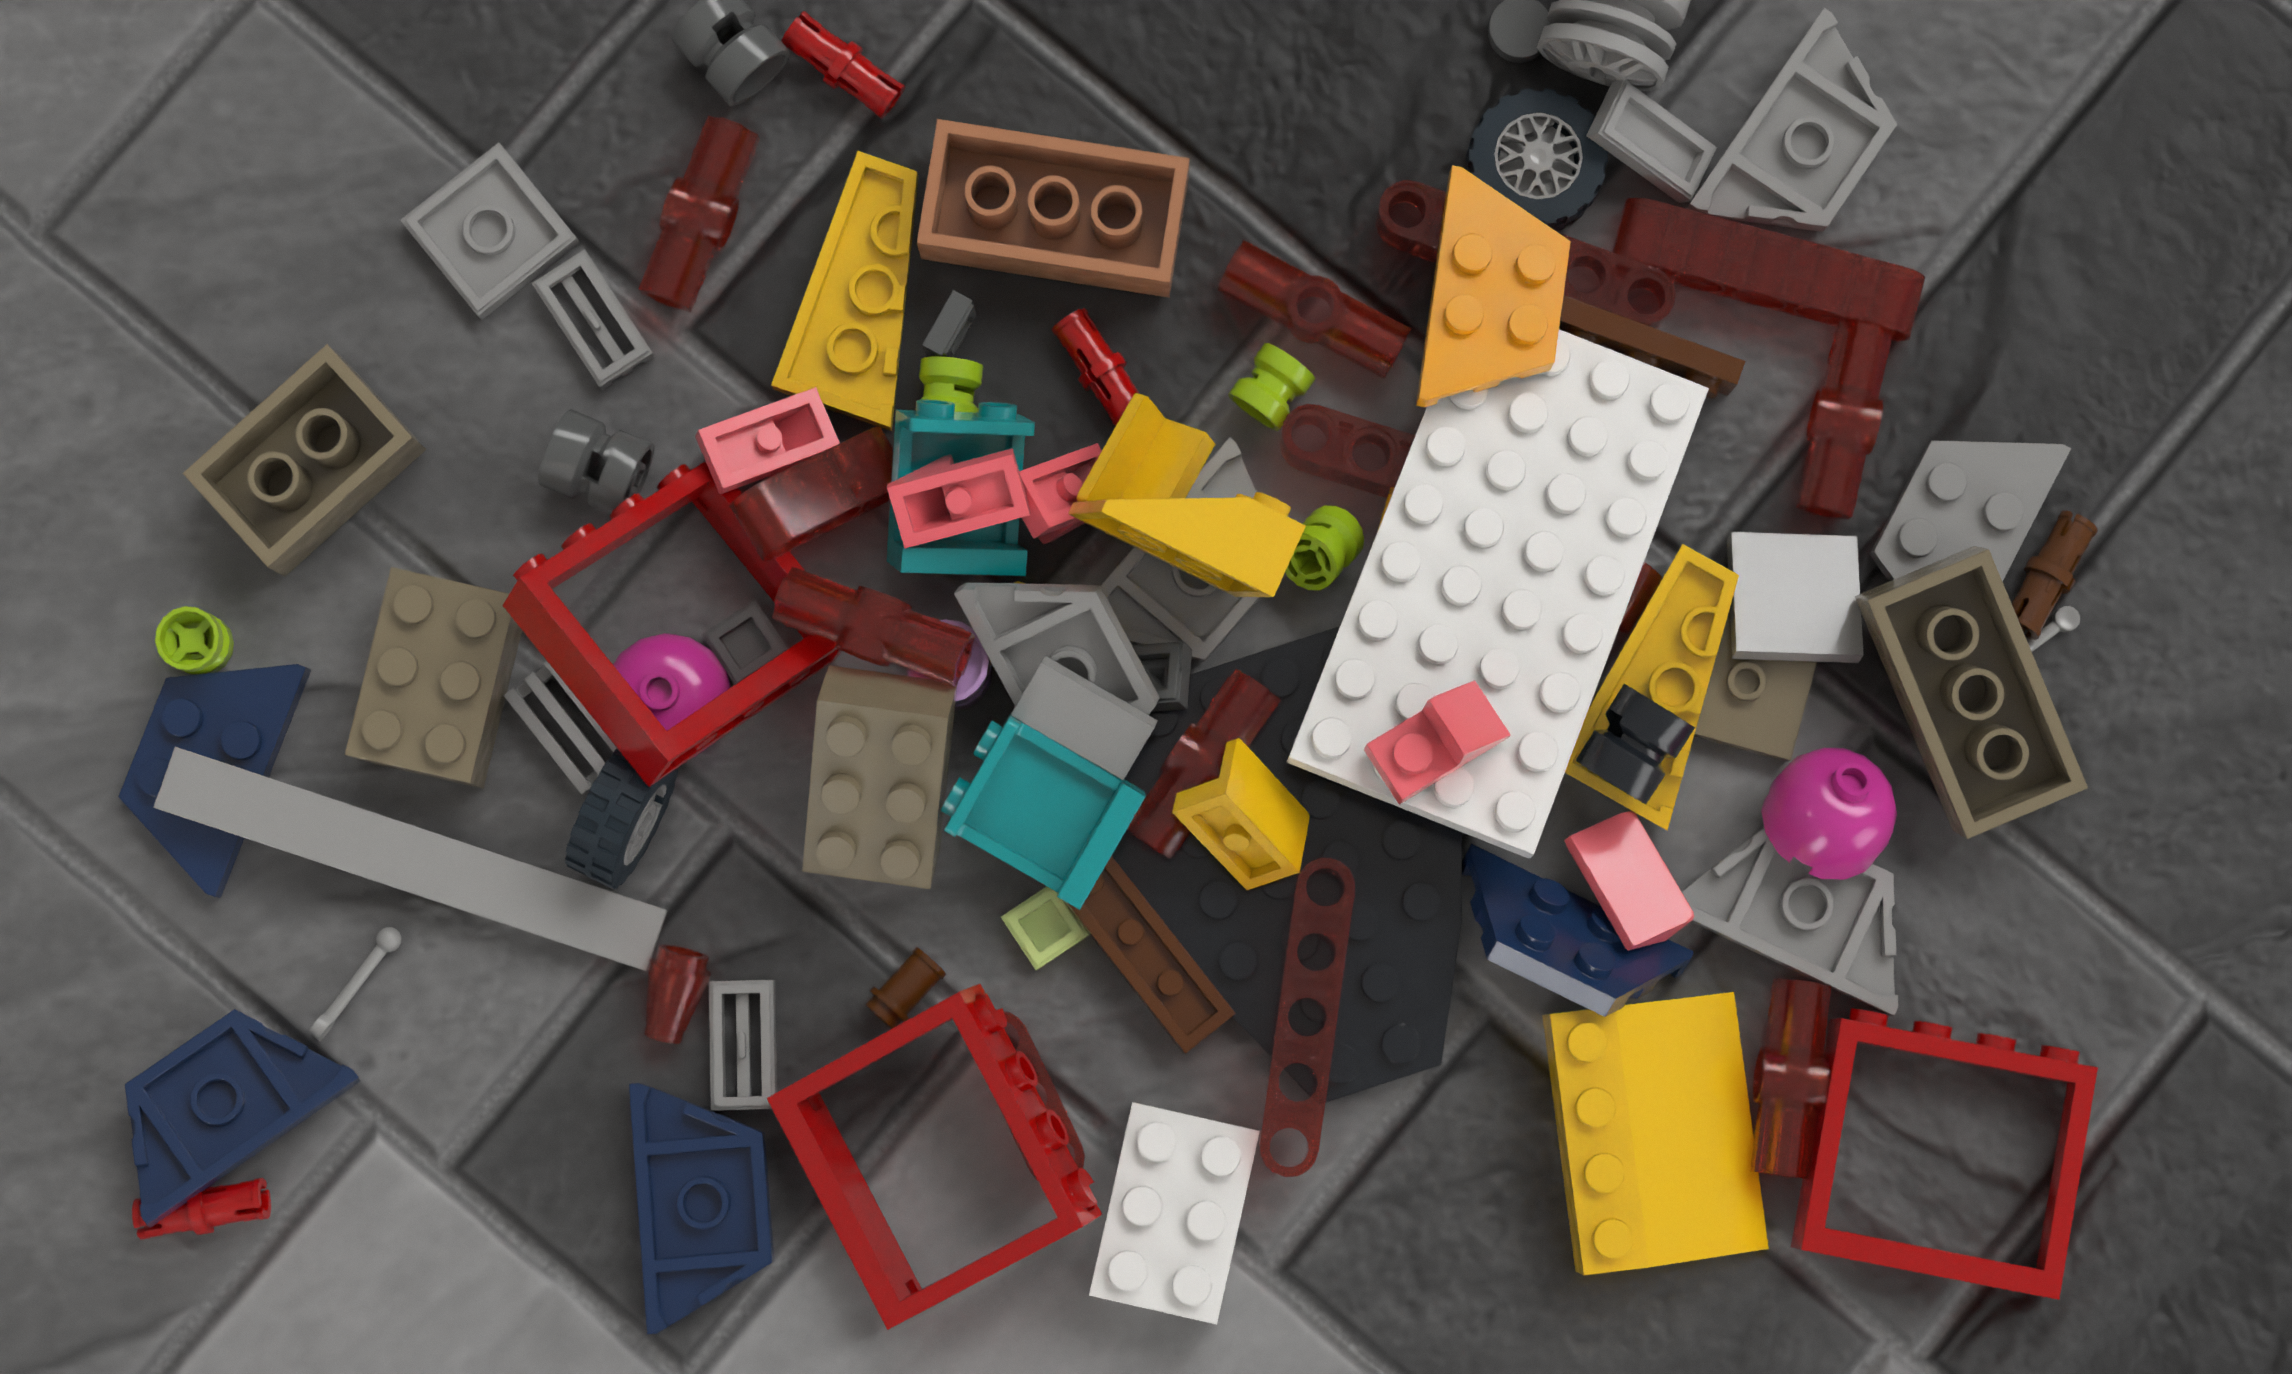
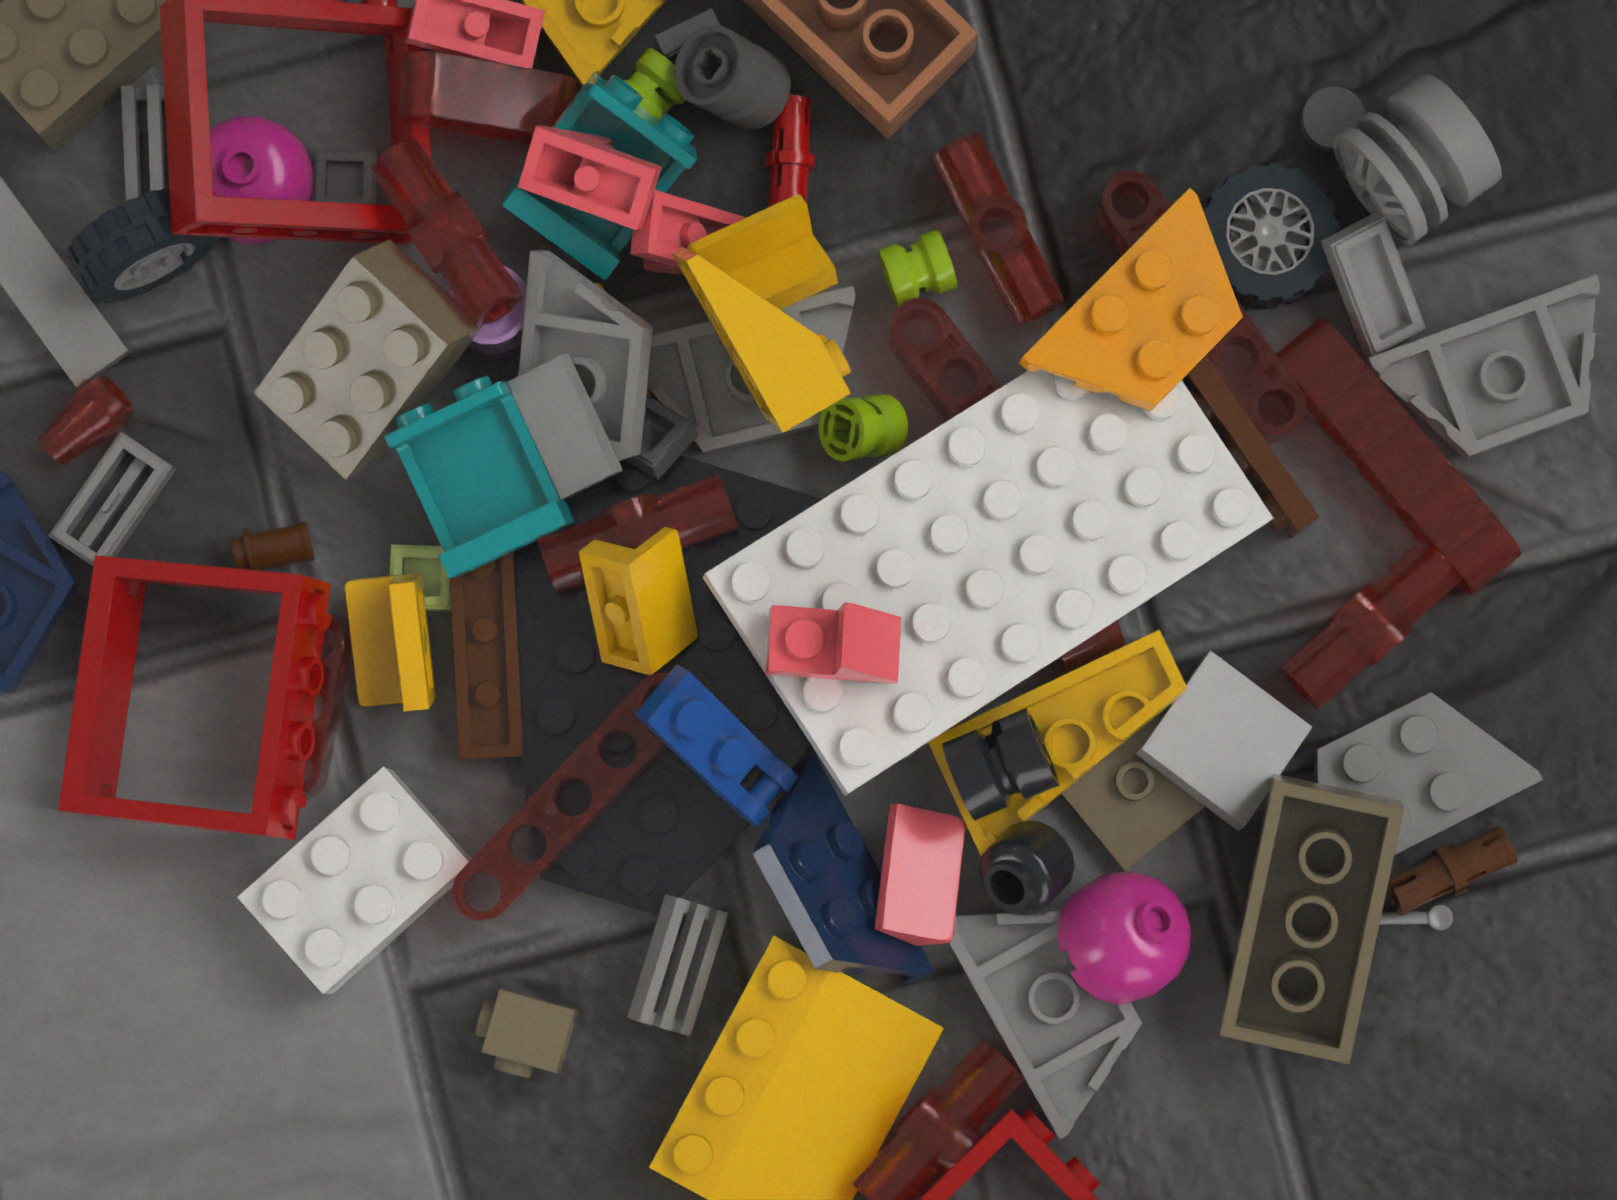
camera: 35 degrees right, 0 degrees up
(1010, 335) = (732, 77): none -> dark grey wheel
(1058, 996) = (391, 641): none -> yellow panel
(1393, 892) = (715, 744): none -> blue plate
(1400, 1237) = (525, 1032): none -> dark tan brick
(1491, 1091) = (686, 967): none -> light grey tile
(1711, 813) = (1026, 867): none -> black head

